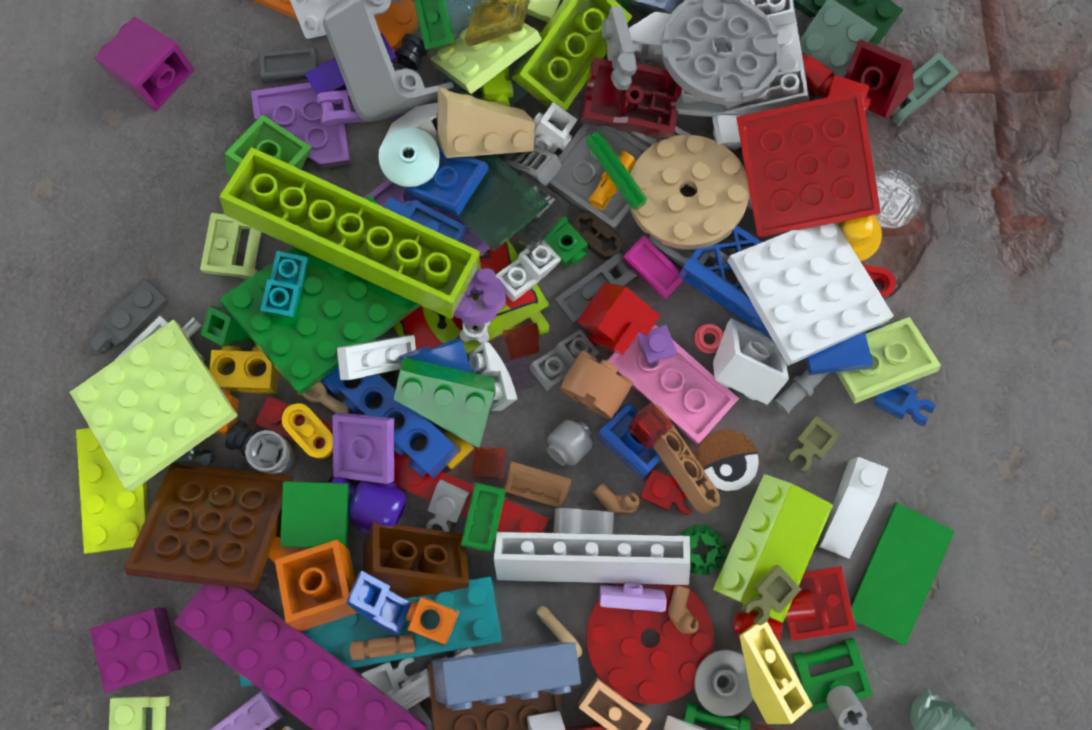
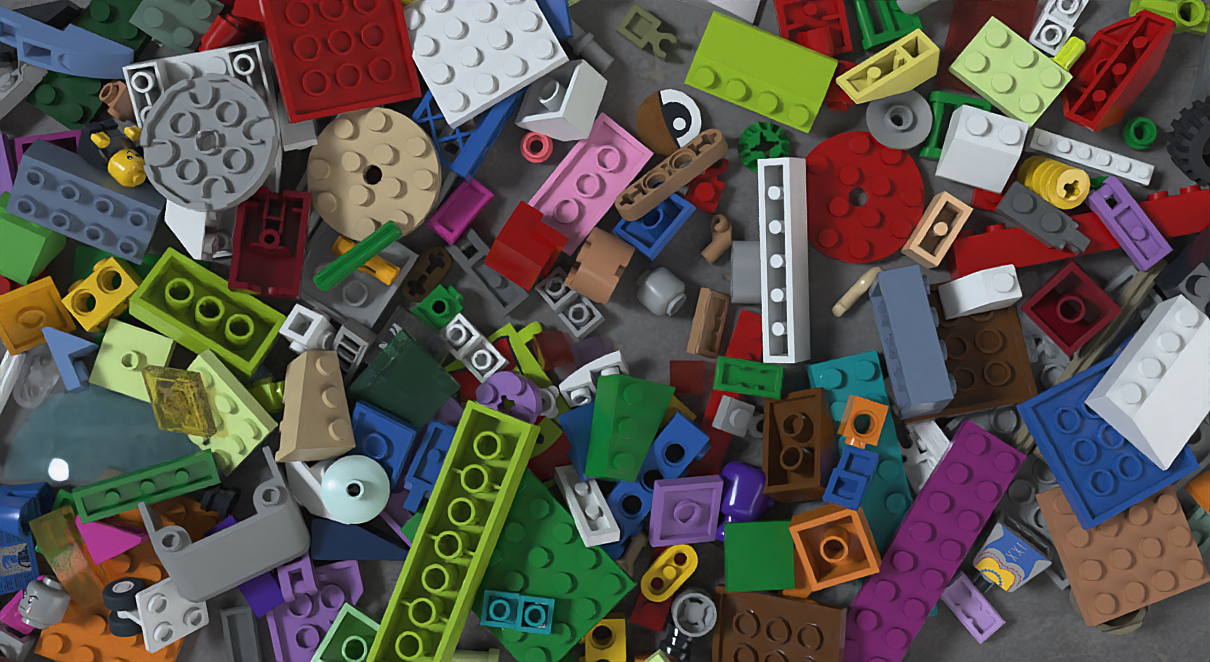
camera: 90 degrees left, 10 degrees up
(363, 155) = (353, 542): none -> dark blue slope
(382, 647) = (891, 471): medium nougat axle -> none
(620, 48) = (216, 258): light grey hinge -> none
(632, 597) = (822, 216): lavender plate -> none
(650, 426) = (642, 205): clear red slope -> none
(657, 345) = (550, 201): medium lavender plate -> none
(679, 612) = (834, 166): medium nougat arm -> none
(774, 592) = (811, 68): olive plate -> none

